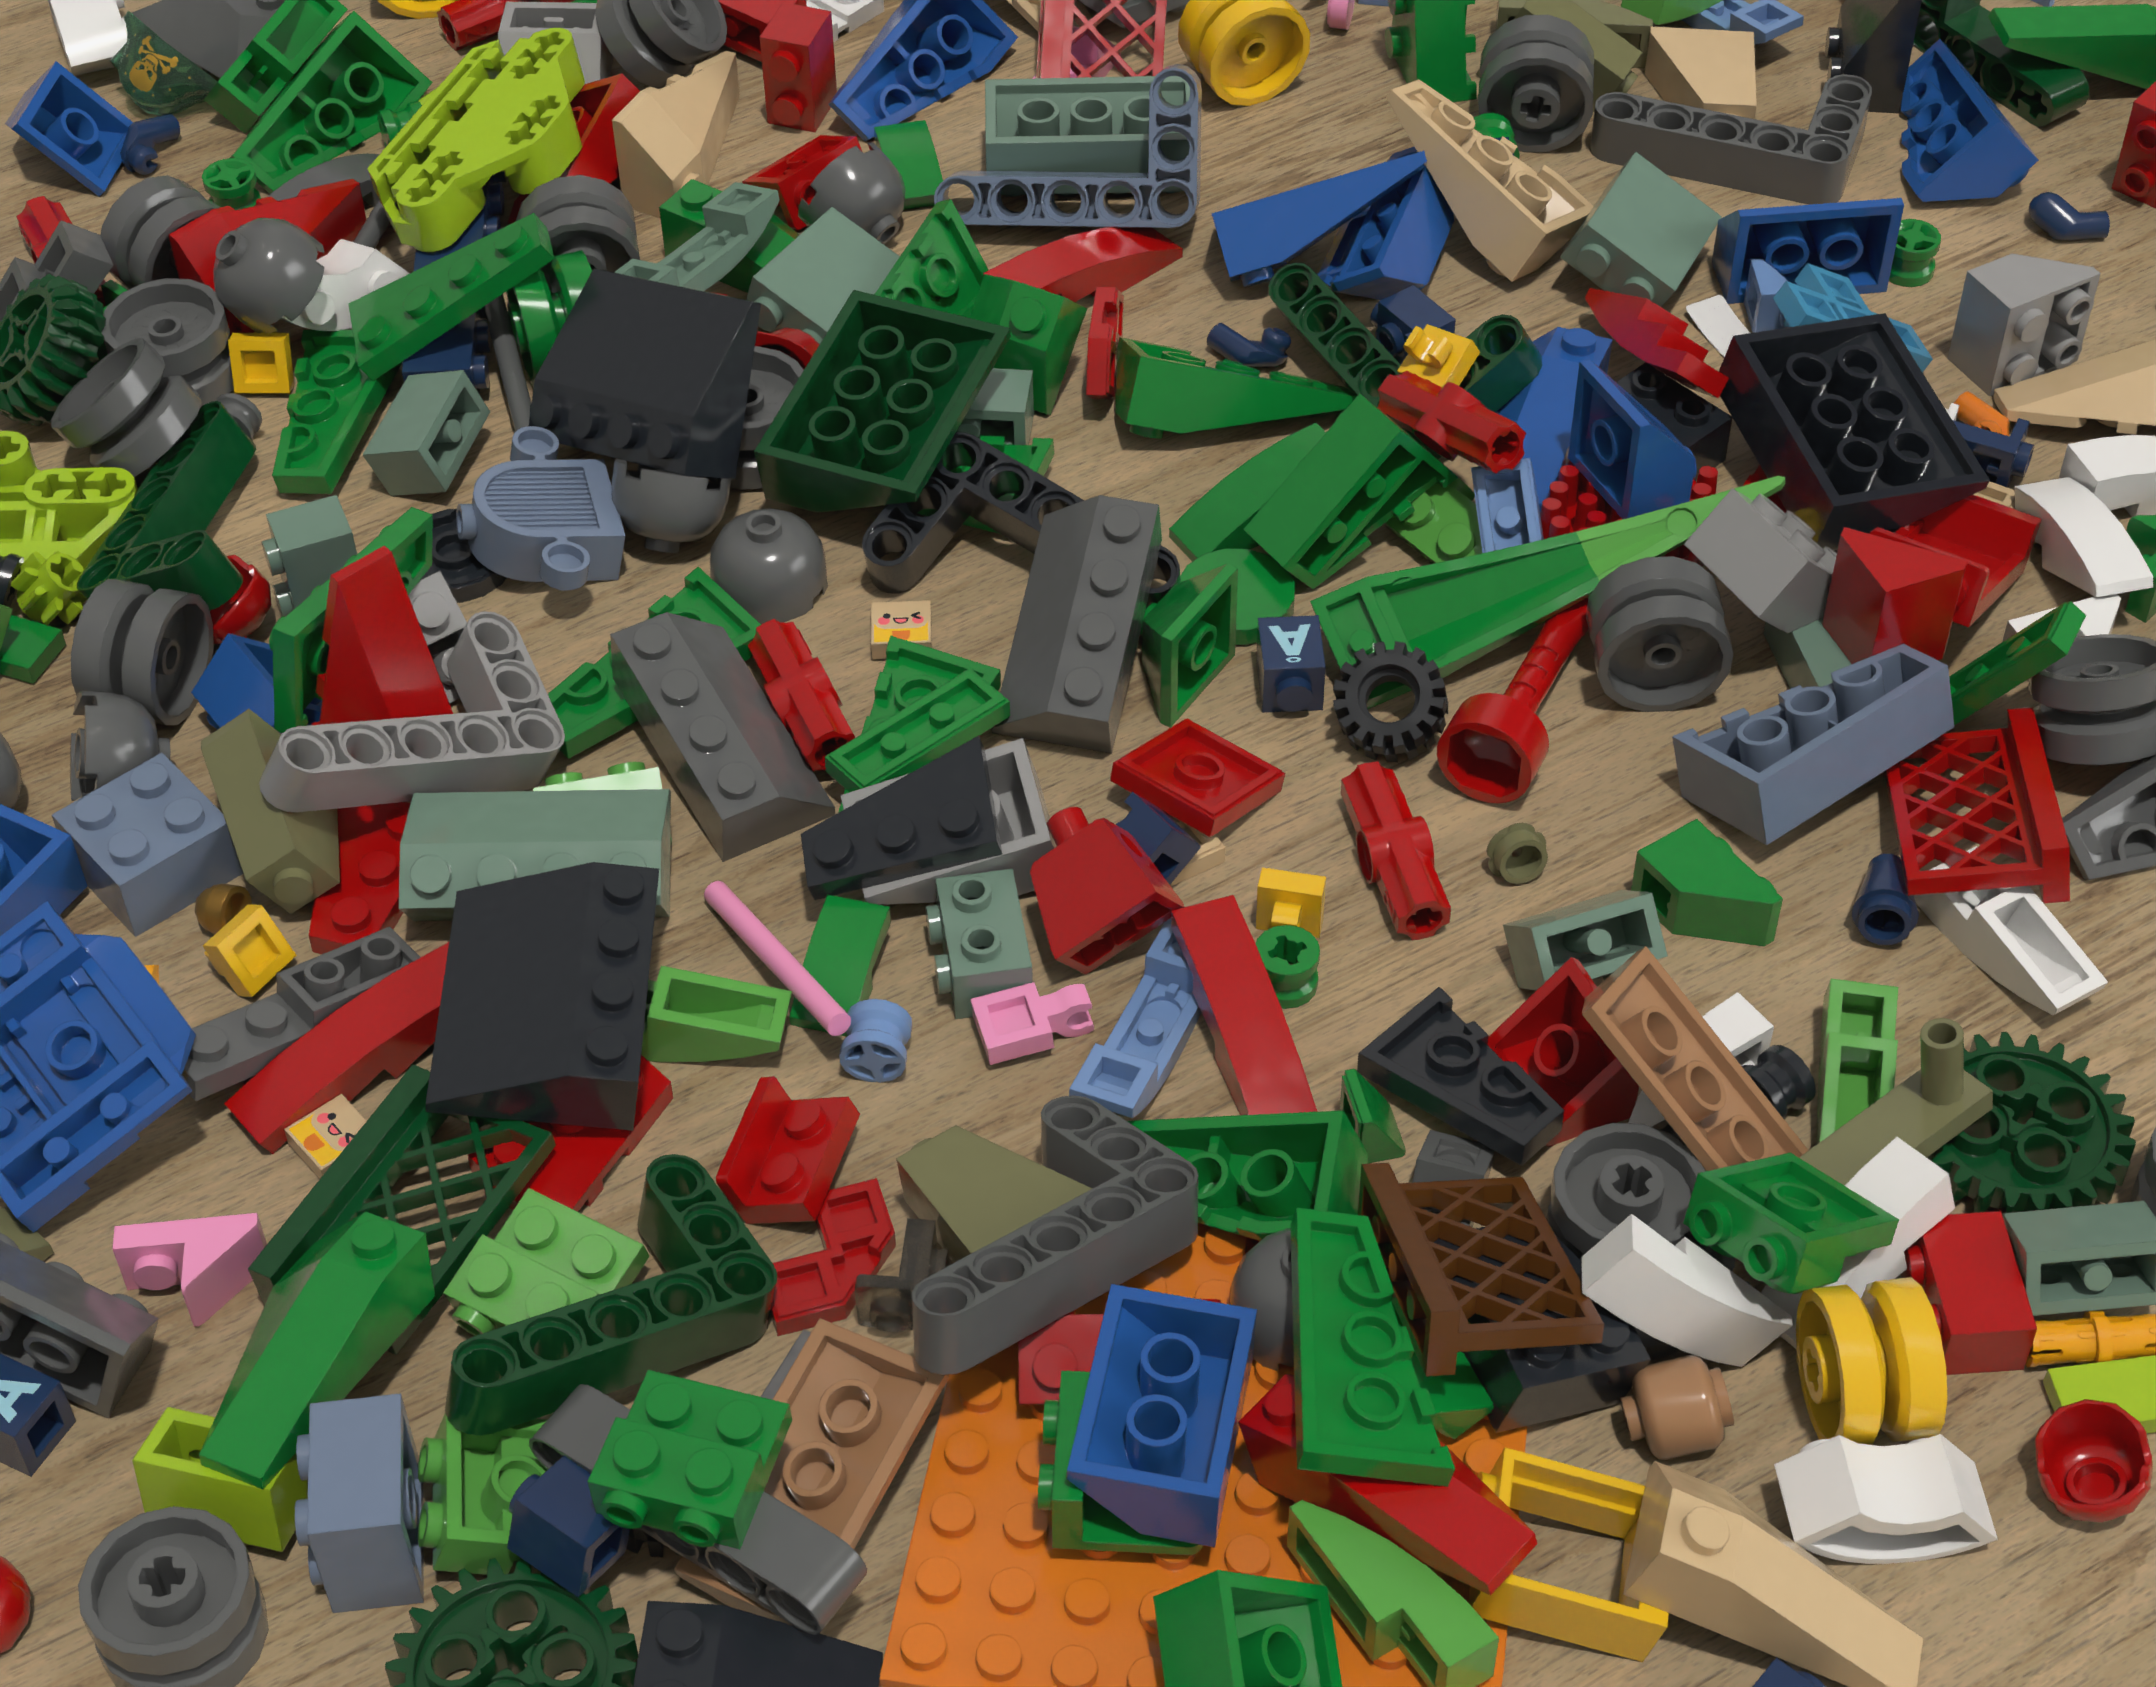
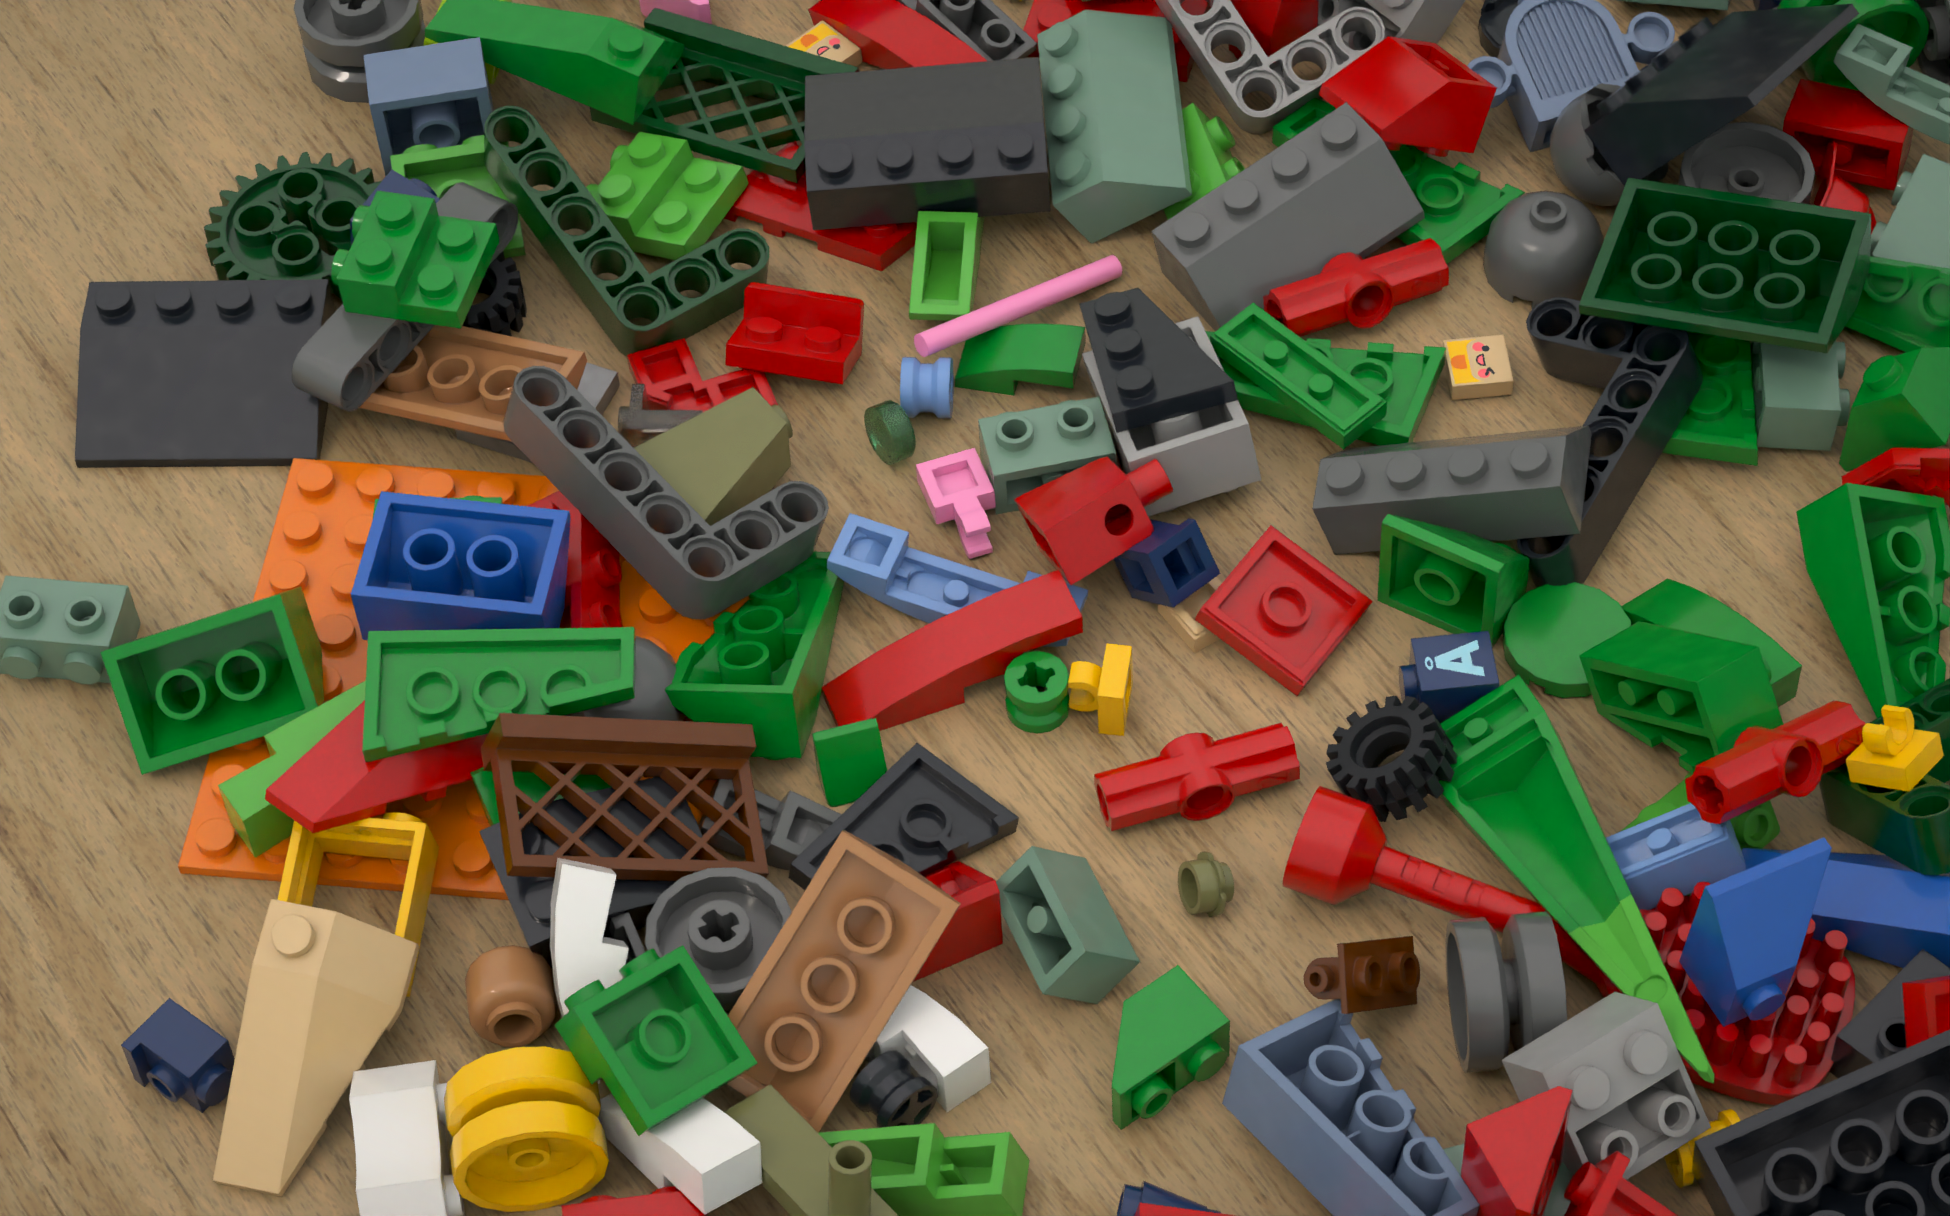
camera: 90 degrees right, 5 degrees up
(575, 608) = (1414, 96): none -> red slope
(932, 1075) = (890, 431): none -> clear green tile
(1639, 727) = (1367, 975): none -> reddish brown hinge

